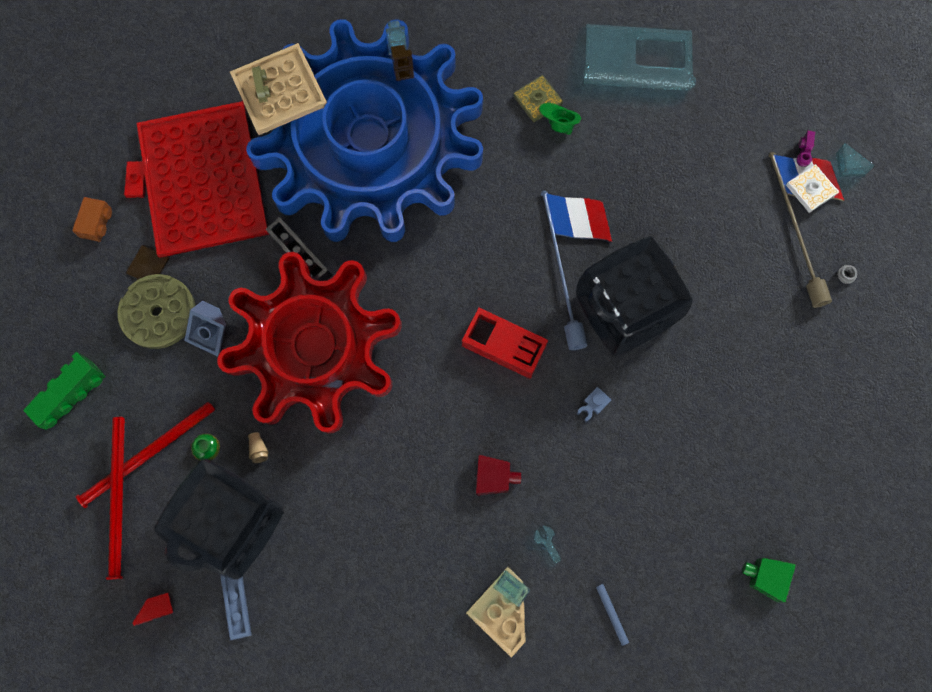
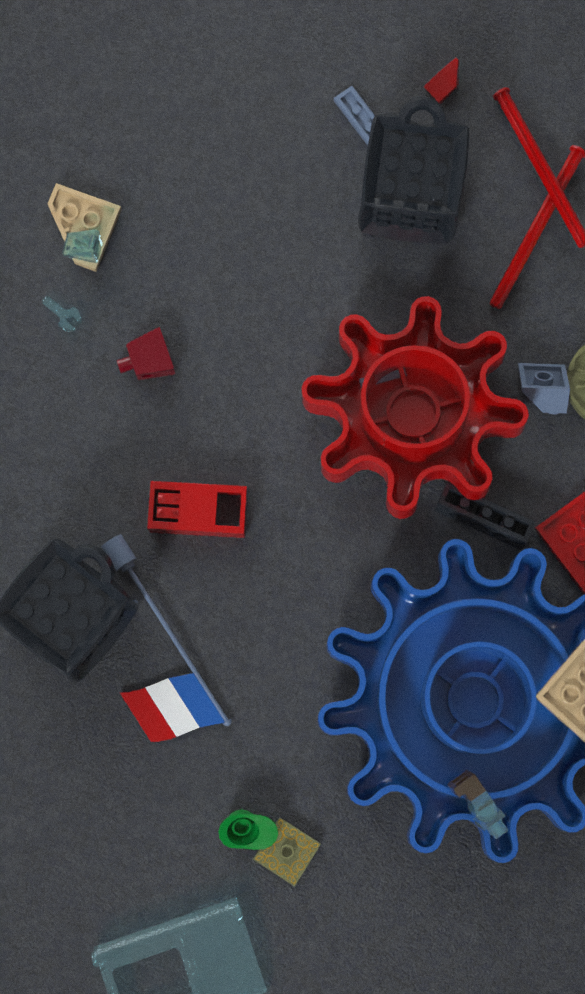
camera: 155 degrees right, 5 degrees up
(205, 447) = (479, 261): green piece -> none
(257, 448) = (420, 280): tan cone -> none
(595, 402) = (67, 488): sand blue plate -> none

